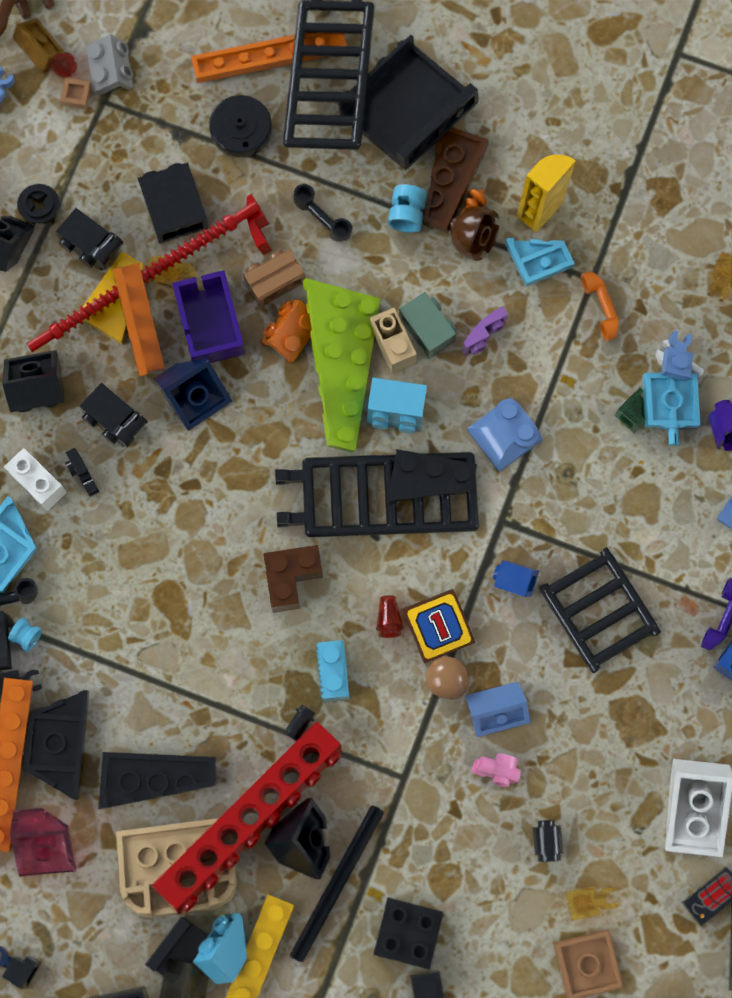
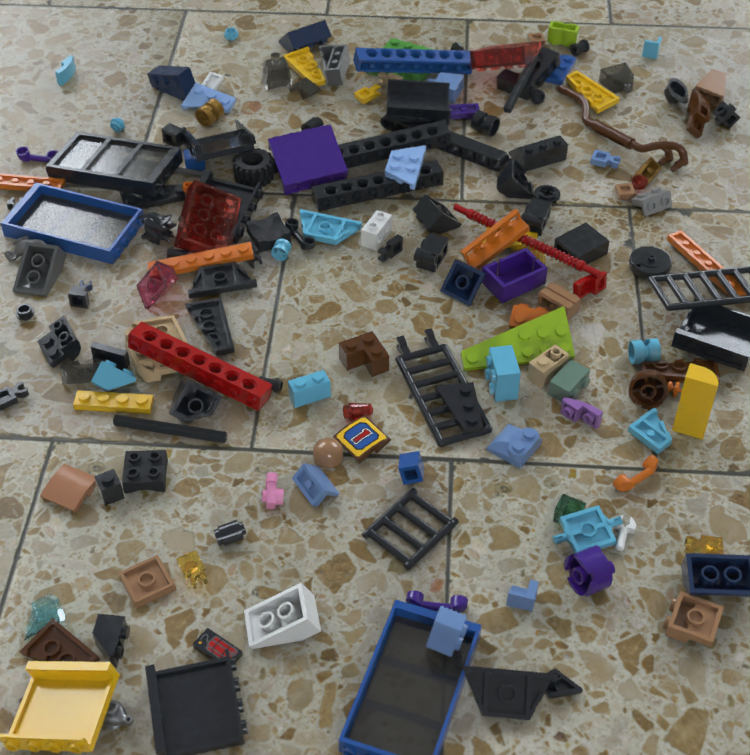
camera: 75 degrees right, 30 degrees down
(304, 199) = (621, 305): black bar -> none
(676, 360) = (617, 520): medium blue plate -> none

